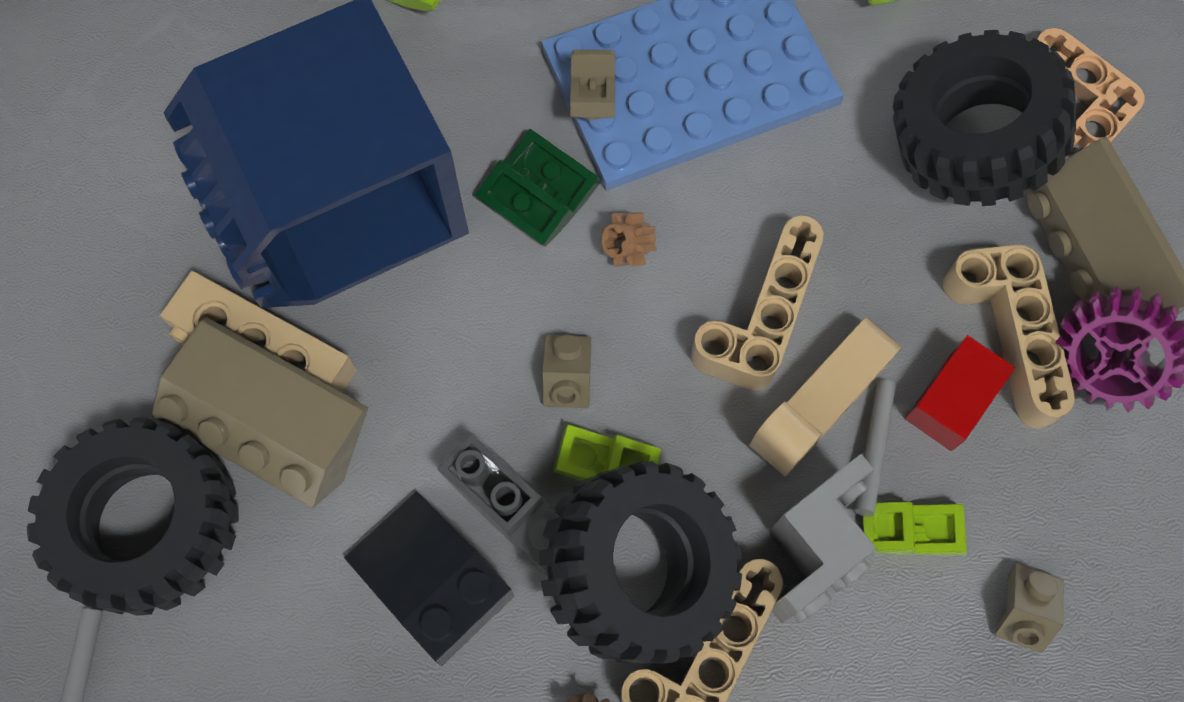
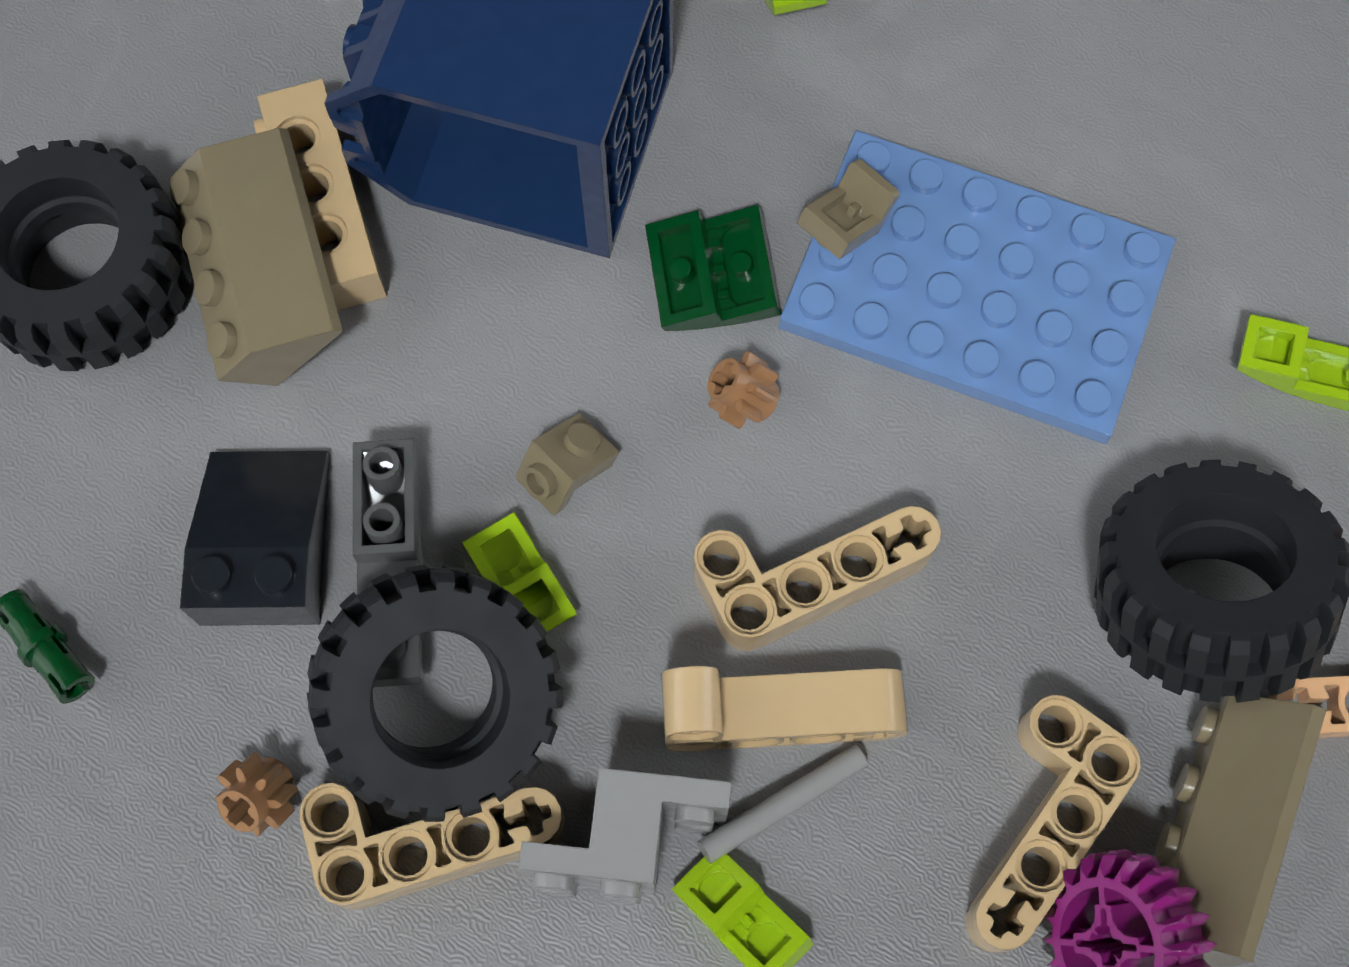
camera: 45 degrees right, 0 degrees up
(960, 393) = (920, 828): red panel -> none

